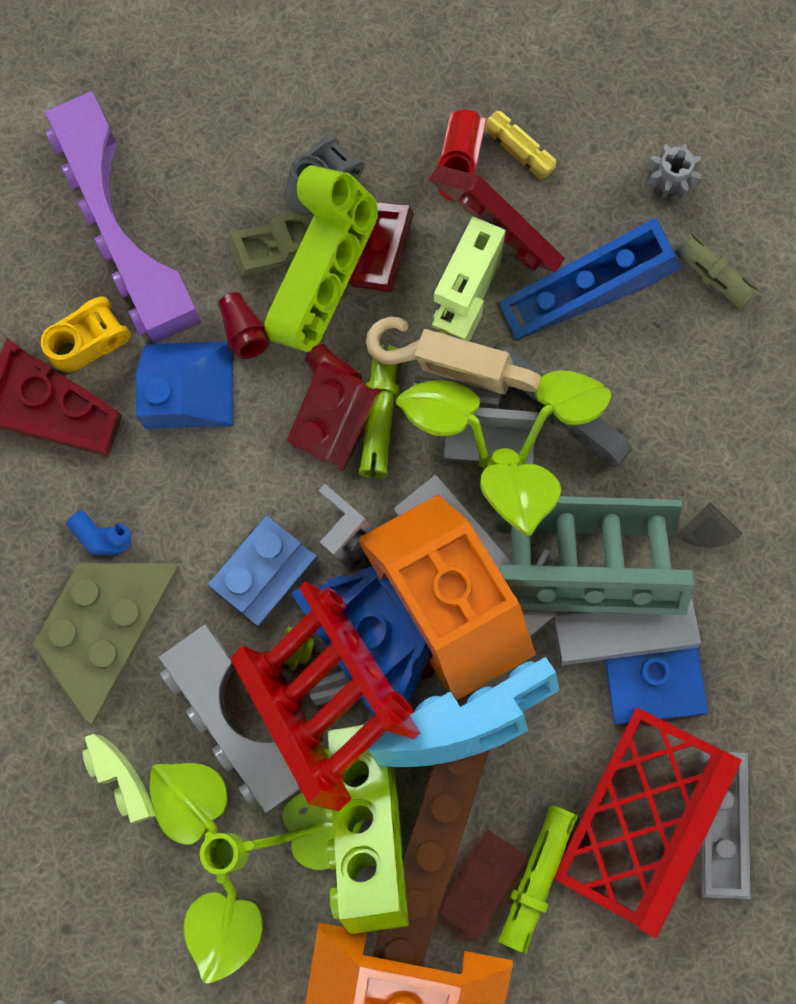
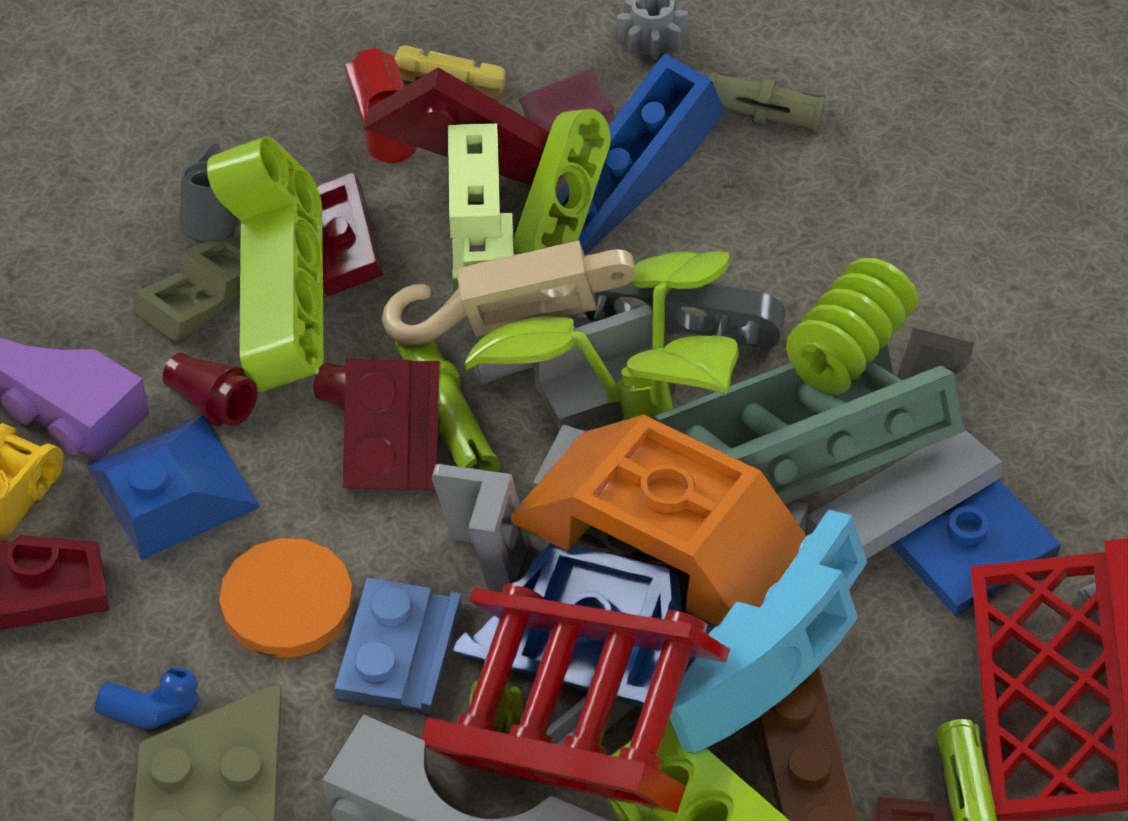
camera: 30 degrees left, 25 degrees down
(213, 502) = (286, 597): none -> orange tile
(533, 271) = (586, 141): none -> lime beam
(580, 215) = (570, 94): none -> clear pink piece
(654, 498) = (850, 324): none -> lime piece

